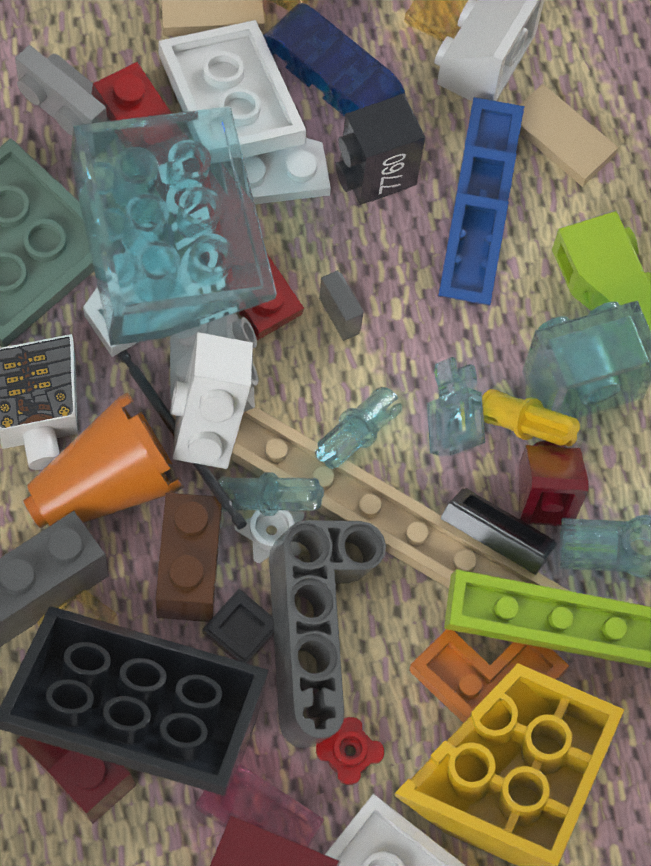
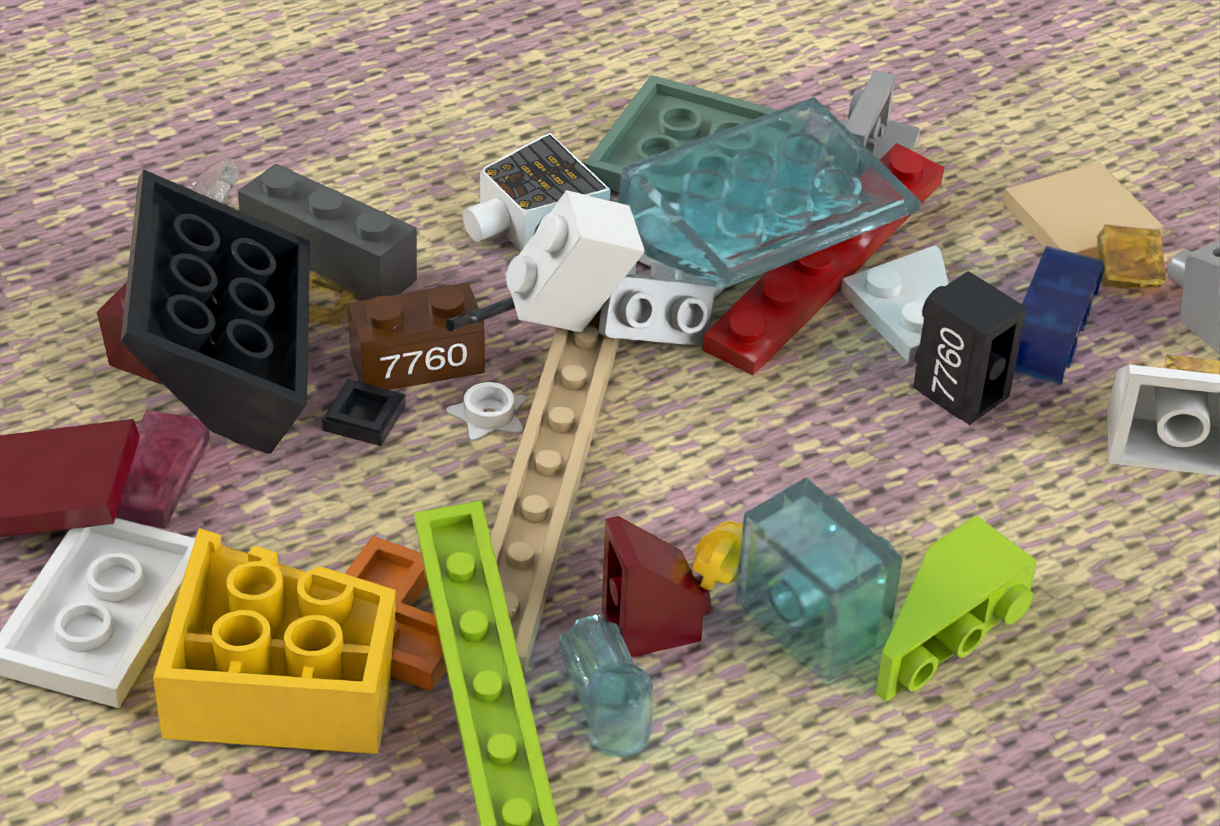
camera: 75 degrees right, 25 degrees down
(103, 470) = (474, 247): orange cone -> none
(236, 71) = (959, 233): white plate -> none
(273, 493) = (515, 372): clear light blue axle -> none
(319, 634) = (283, 480): dark grey beam -> none
(341, 305) = (772, 383): dark grey tile -> none
(350, 767) = (264, 531): red plate -> none
(357, 427) = (630, 424): clear light blue axle -> none
(457, 414) = (693, 511): clear light blue plate -> none
(481, 201) = (990, 469): blue slope -> none
(499, 530) = (570, 572): black tile -> none
(565, 135) = (1120, 525): tan tile -> none

